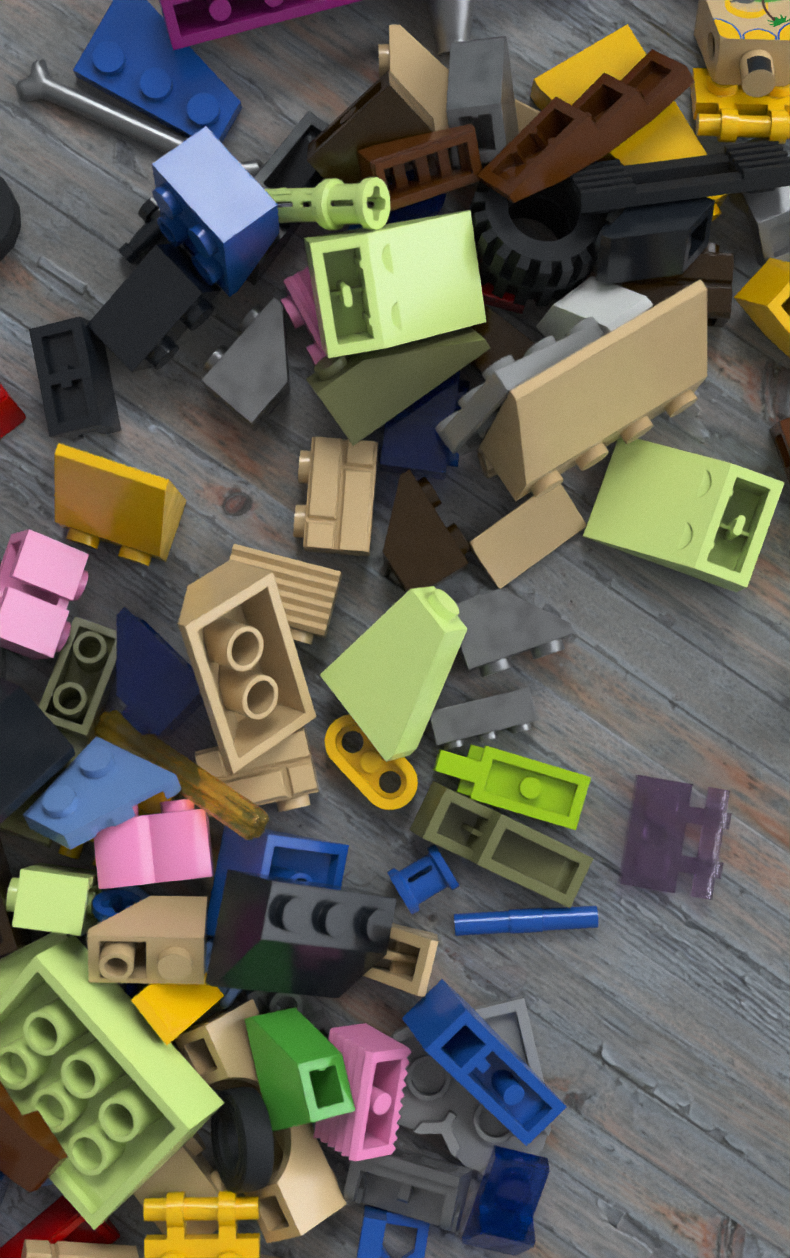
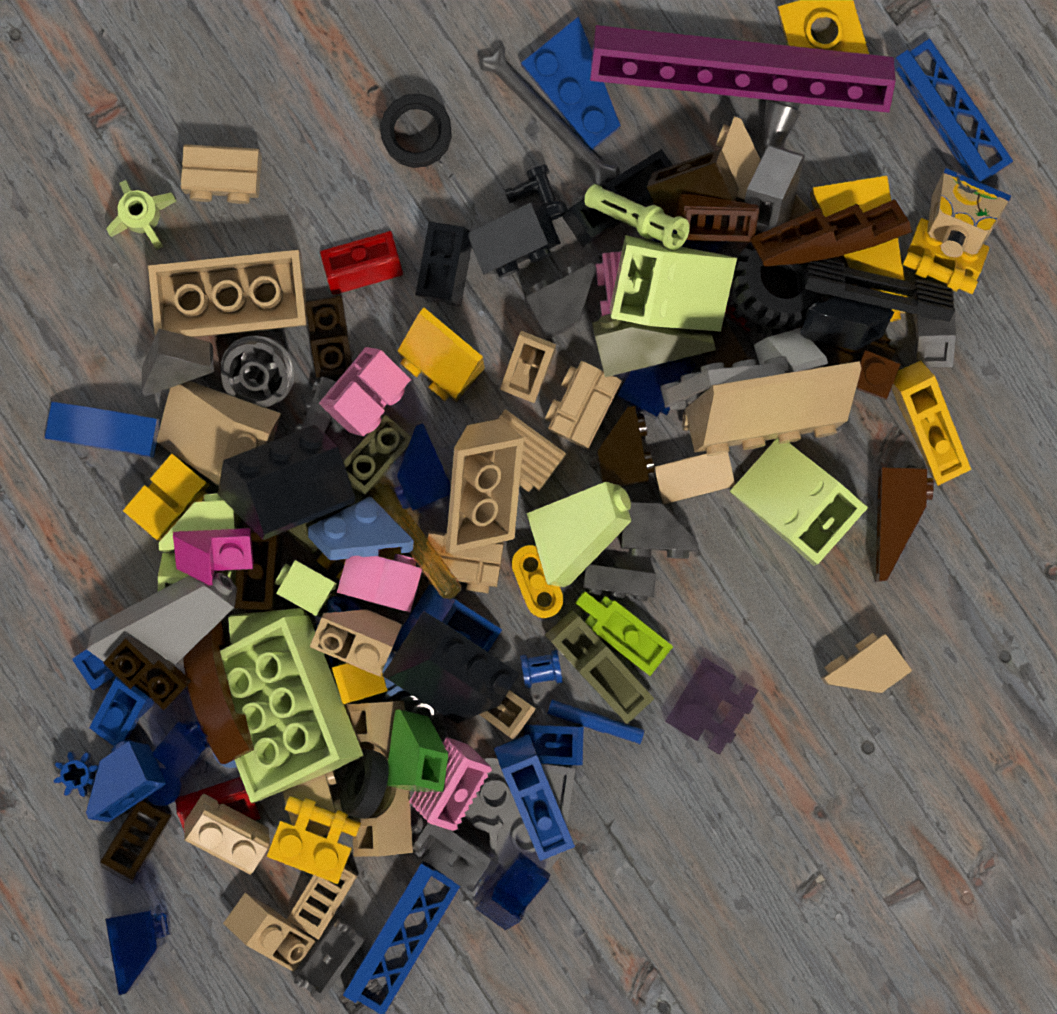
camera: 25 degrees right, 0 degrees up
(214, 210) = (575, 195): slope -> none
(243, 473) = (528, 366): none -> tan slope
(486, 973) = (557, 743): none -> blue slope
(726, 297) = (877, 375): none -> reddish brown plate

